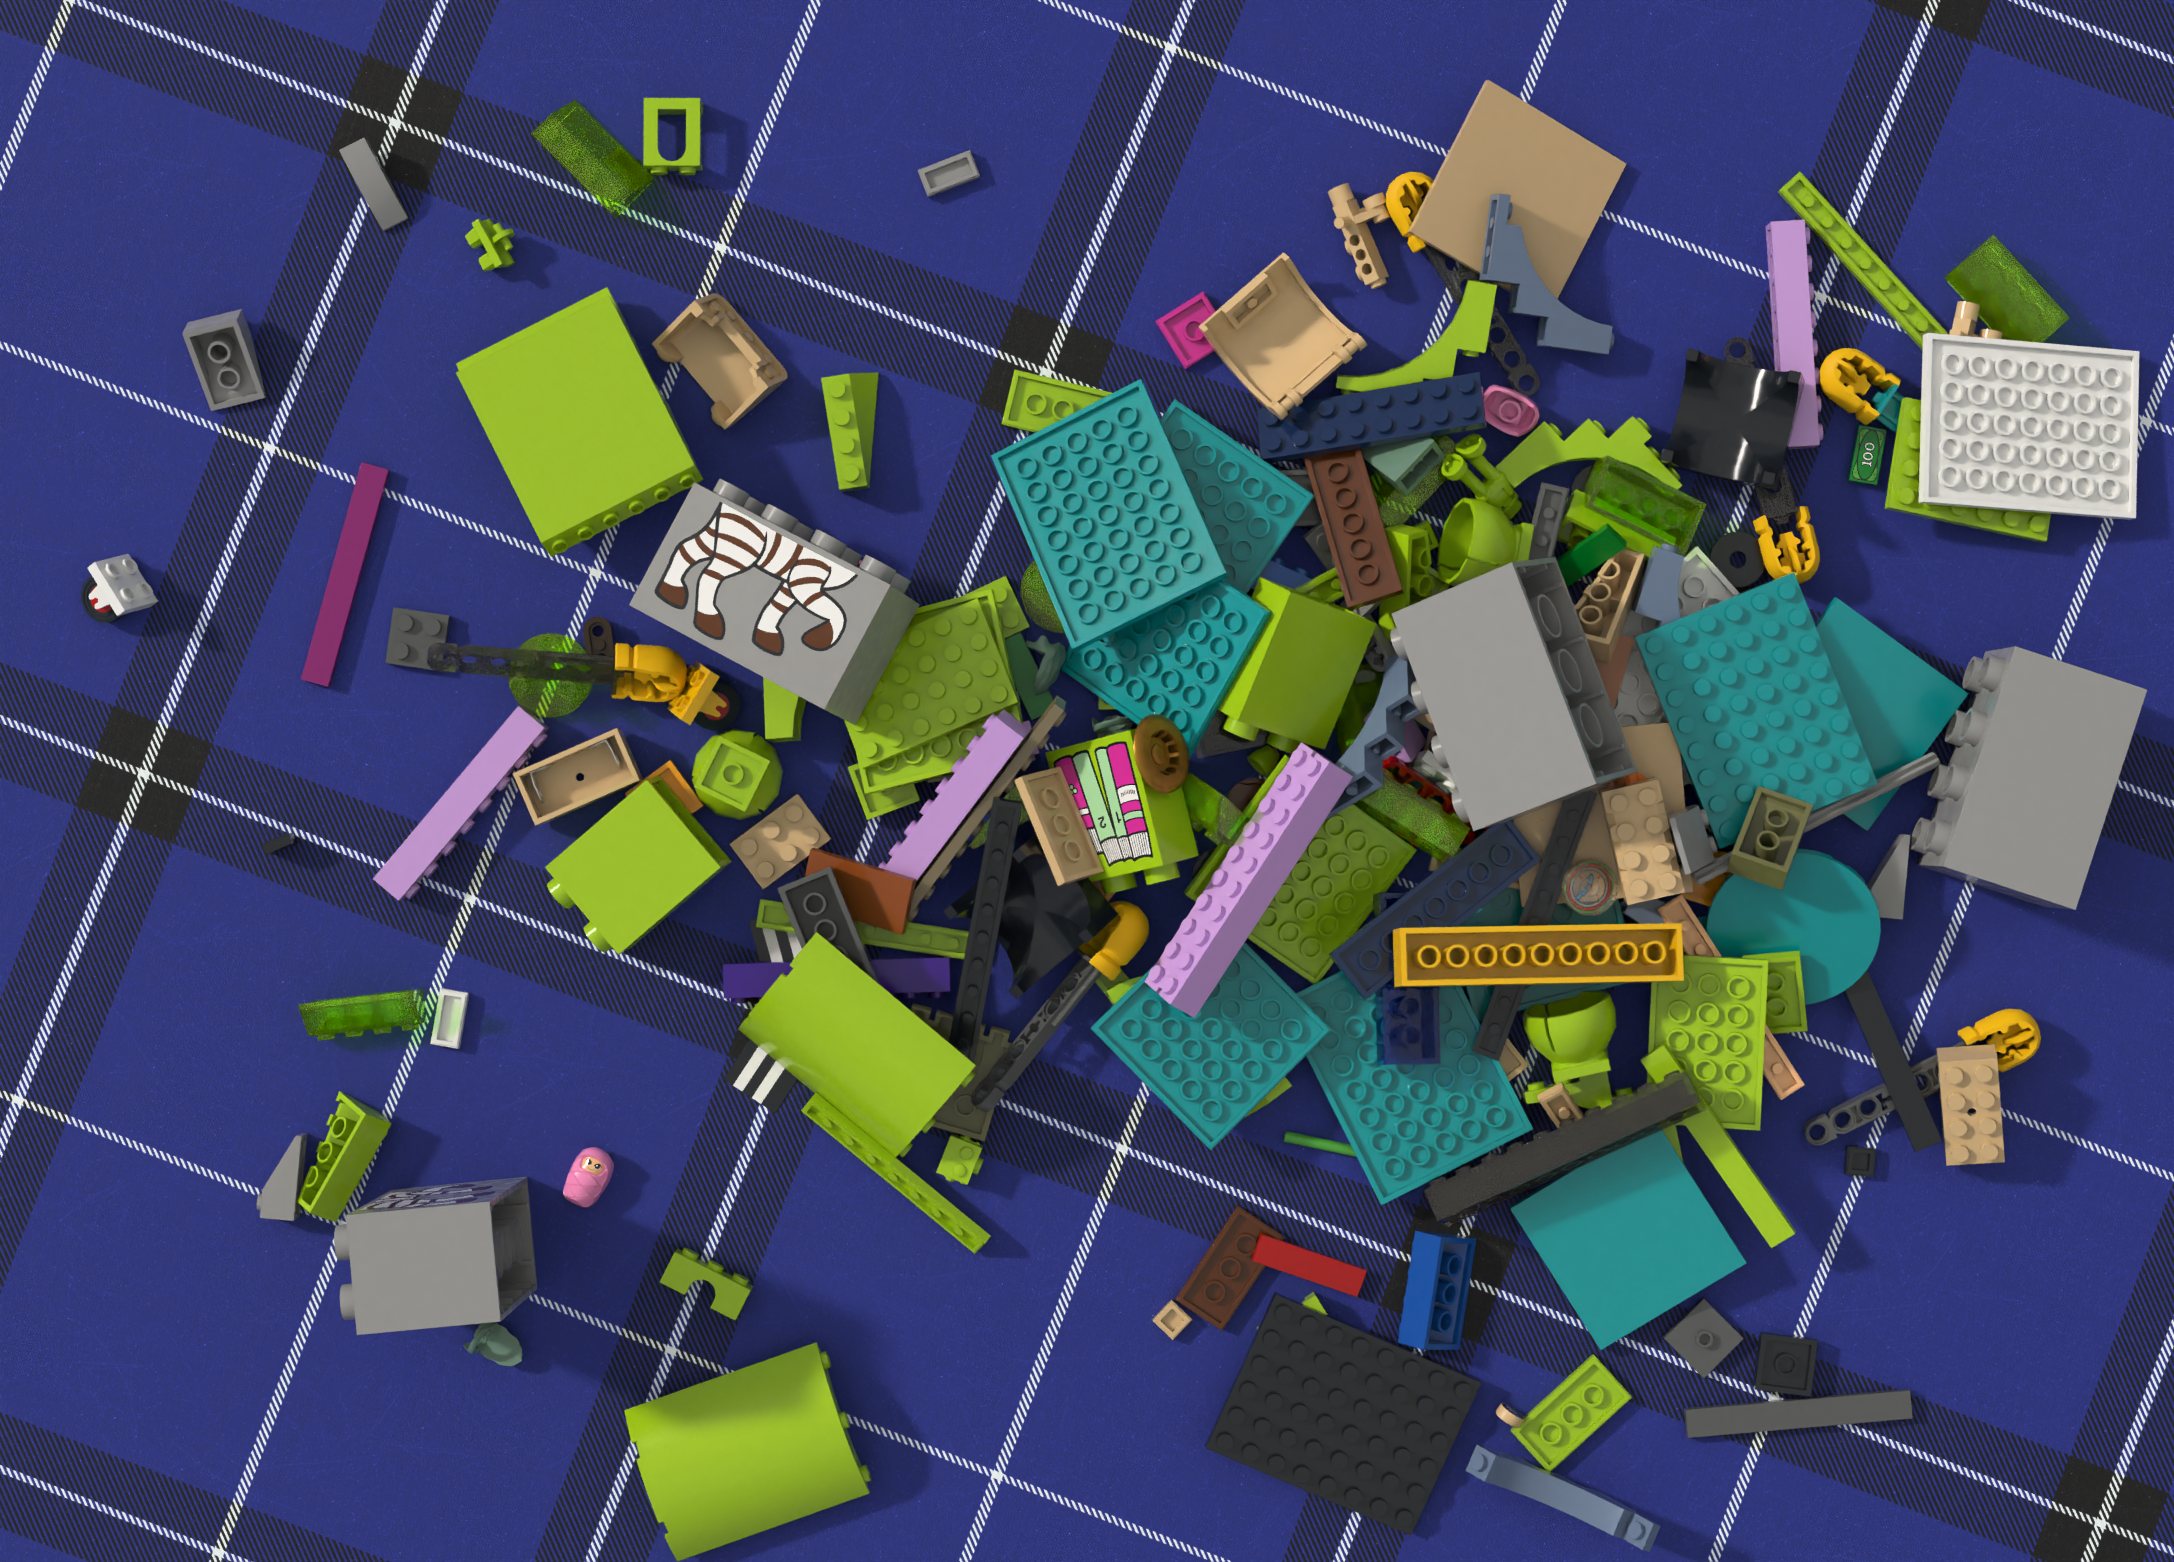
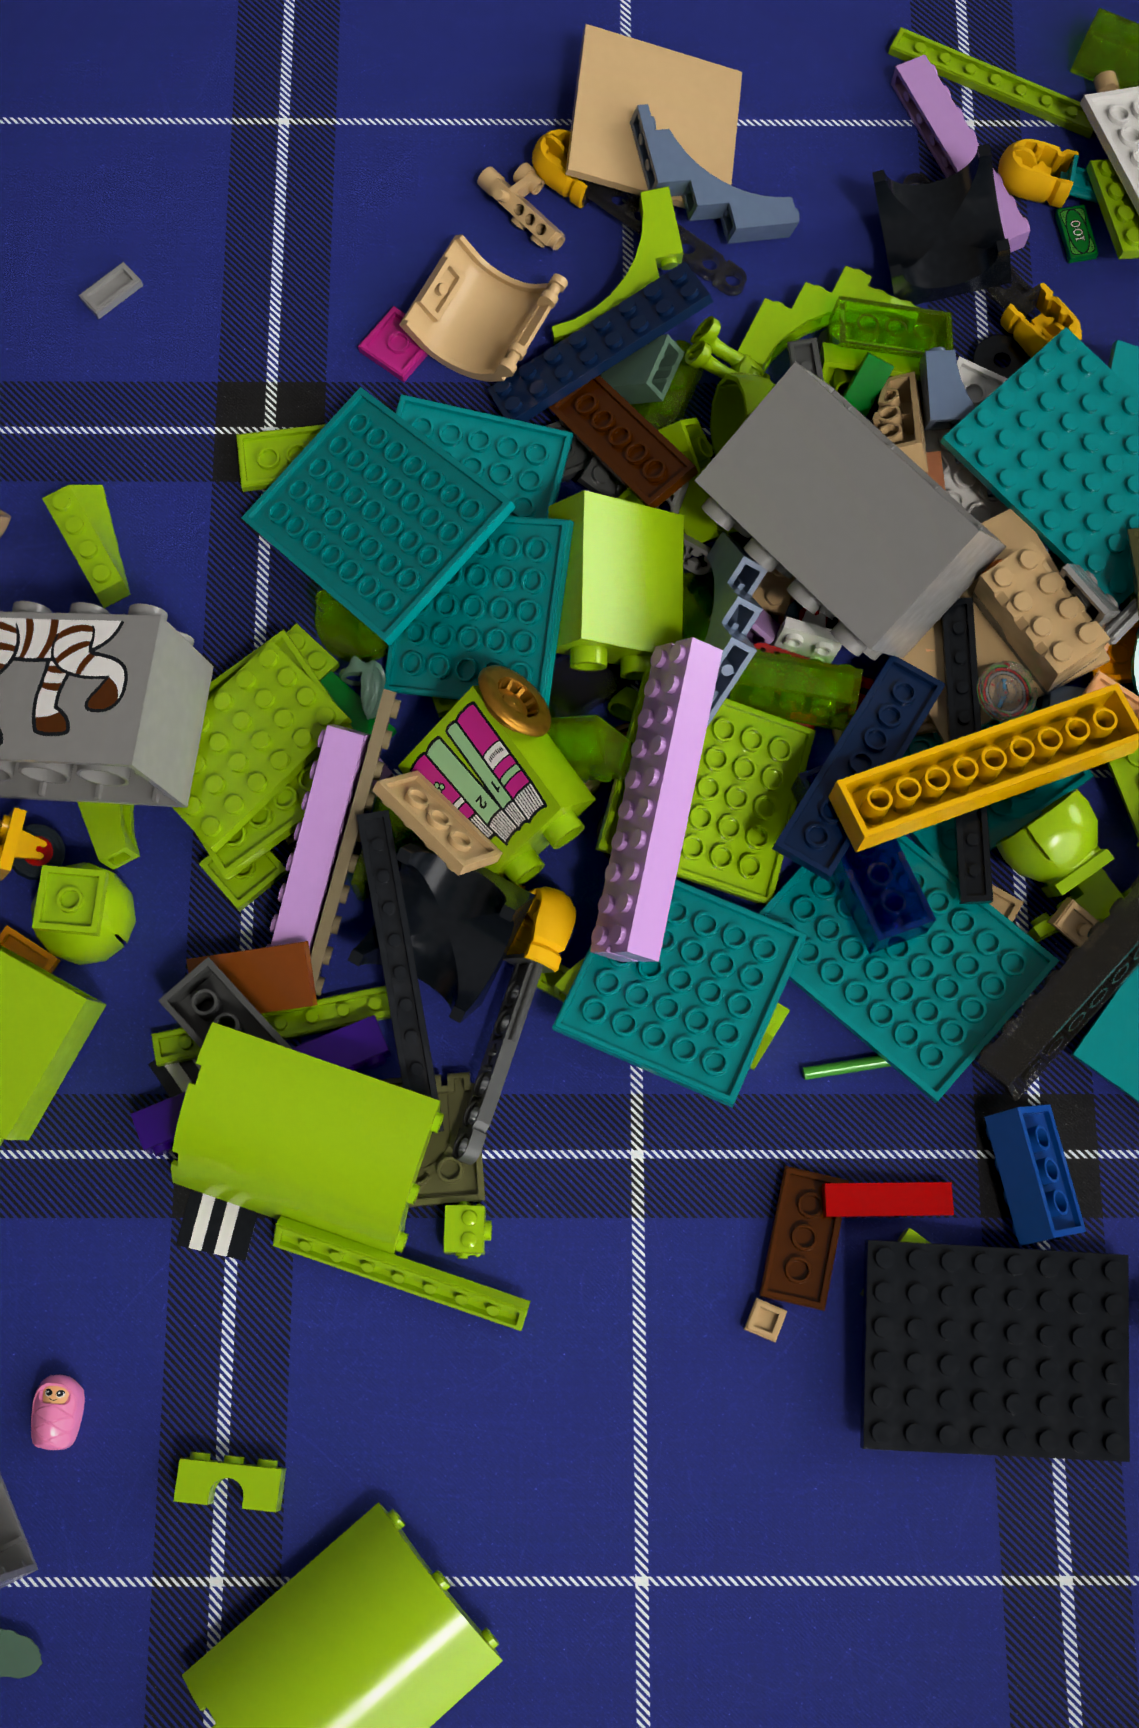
camera: 20 degrees left, 15 degrees down
(780, 841) = (152, 967): tan plate -> none
(1510, 410) = (732, 302): bright pink piece -> none

